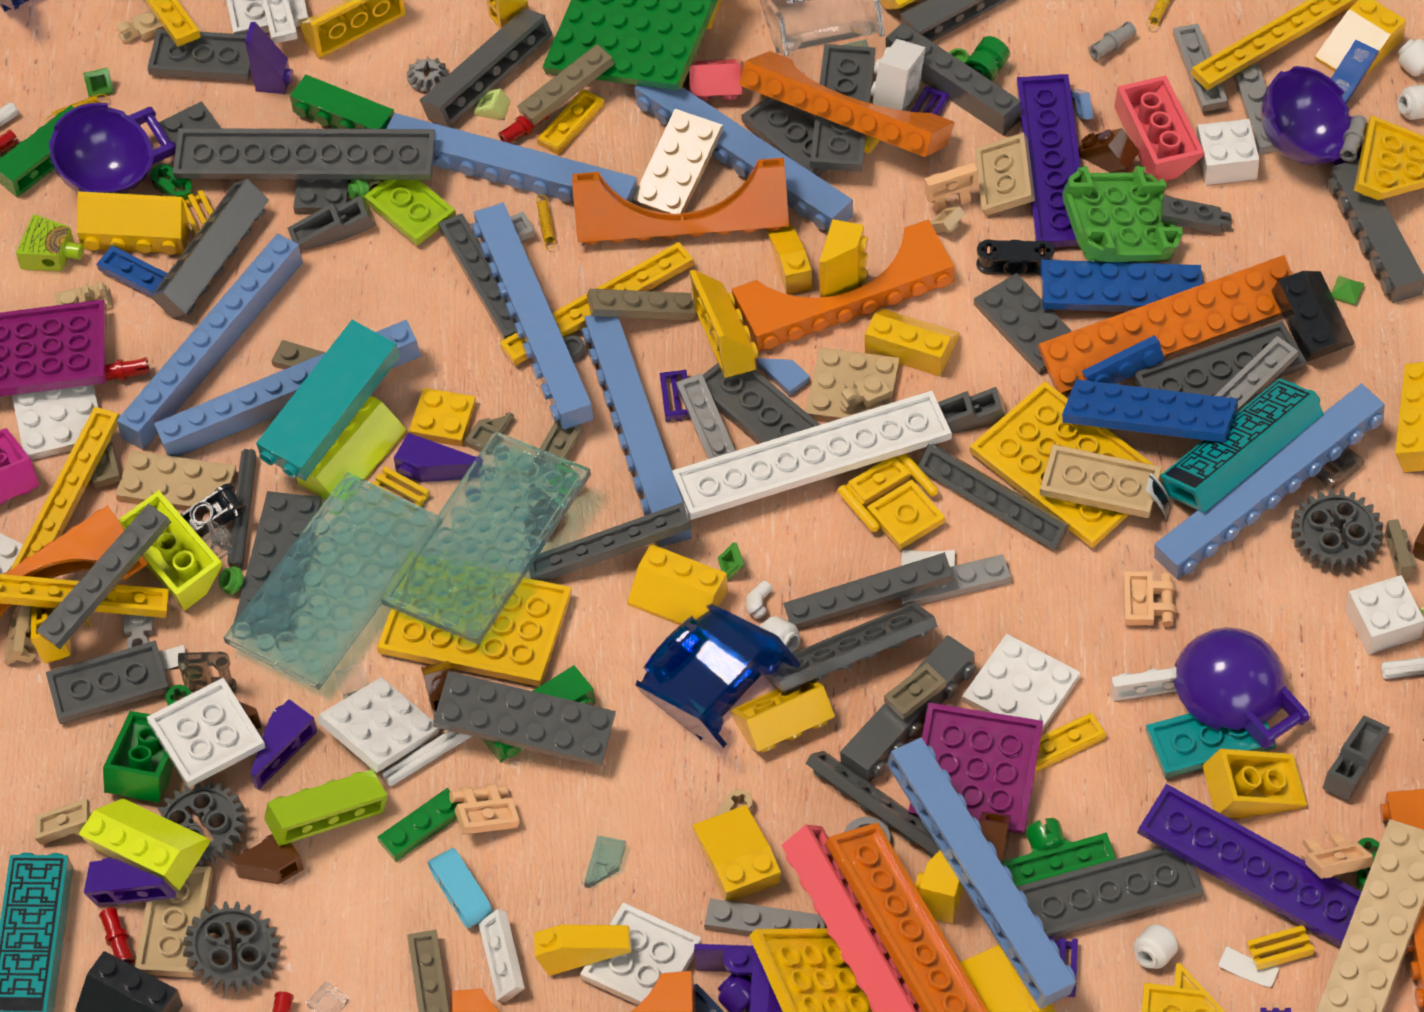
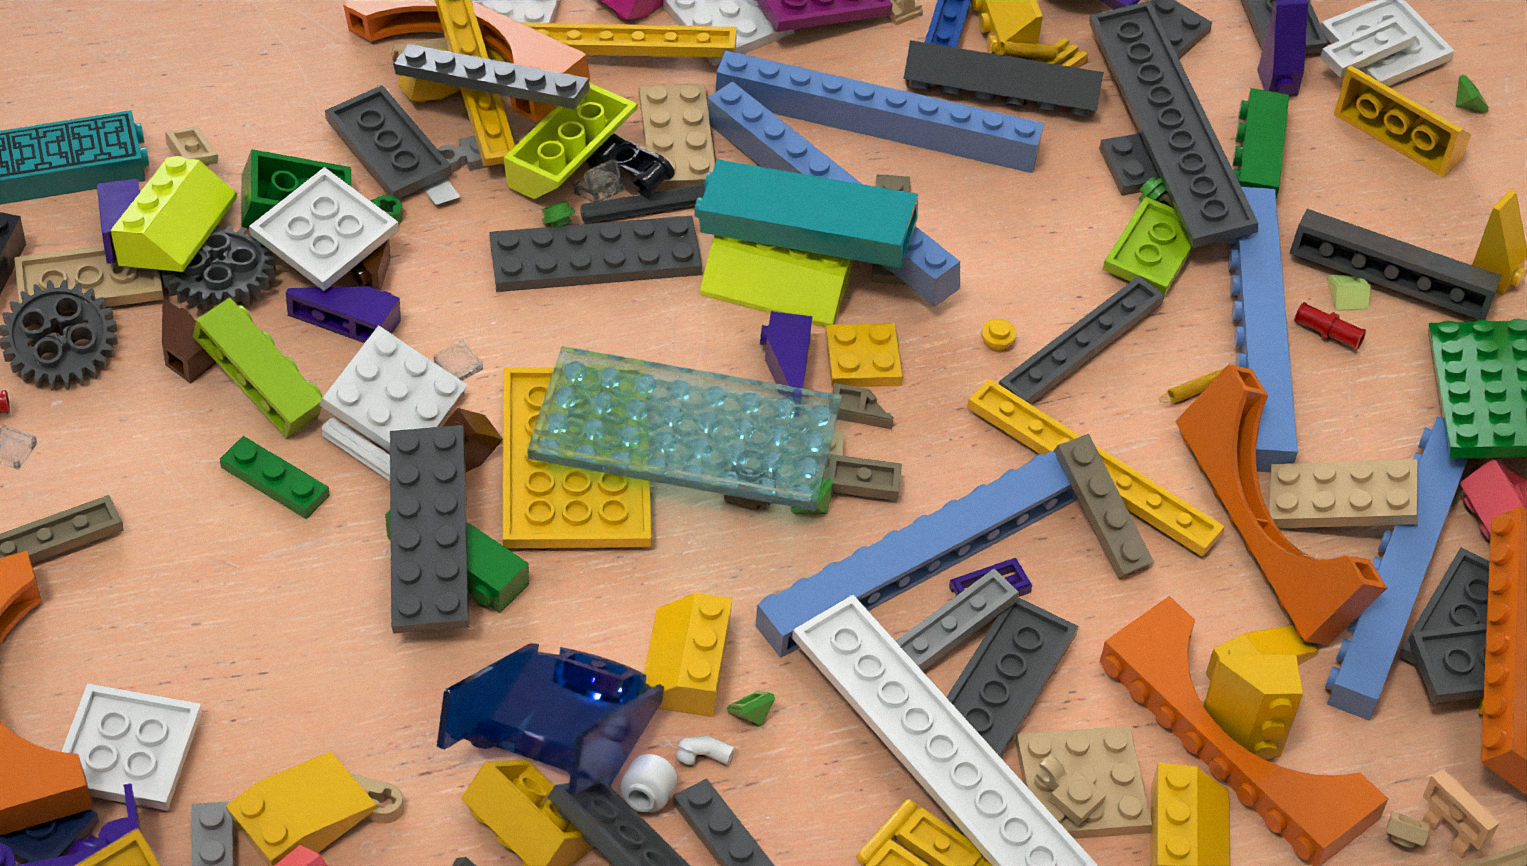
camera: 65 degrees right, 5 degrees down
(107, 470) = (676, 69): dark tan plate -> none
(116, 935) = (57, 233): red pin -> none
(124, 369) = (810, 49): red pin -> none
(169, 186) = (1082, 26): green beam -> none
(191, 223) = (1028, 50): none -> yellow piece
(197, 669) = (412, 215): clear smoke plate -> none
(330, 581) = (579, 295): clear light blue plate -> none
(332, 224) = (1094, 181): dark grey slope -> none
(395, 479) = (746, 320): yellow tile -> none
(416, 74) = (1376, 218): light grey gear -> none
(455, 326) = (998, 334): none -> yellow plate
(460, 887) = (188, 533): medium azure beam -> none
(484, 815) = (294, 533): light nougat plate -> none
(501, 956) = (100, 599): white plate -> none
(523, 226) = (1170, 357): light grey plate -> none
(533, 316) = (1030, 395): medium blue brick -> none
(565, 84) = (1401, 341): dark tan plate -> none
(570, 121) = (1364, 375): yellow tile -> none
(575, 347) = (1015, 455): dark grey tile -> none
(576, 946) = (119, 667): yellow slope -> none
(604, 860) = (267, 675): clear light blue tile -> none
(610, 542) = (722, 557): dark grey plate -> none
(723, 325) = (1101, 592): yellow slope -> none
(785, 374) = (1072, 699): medium blue tile -> none

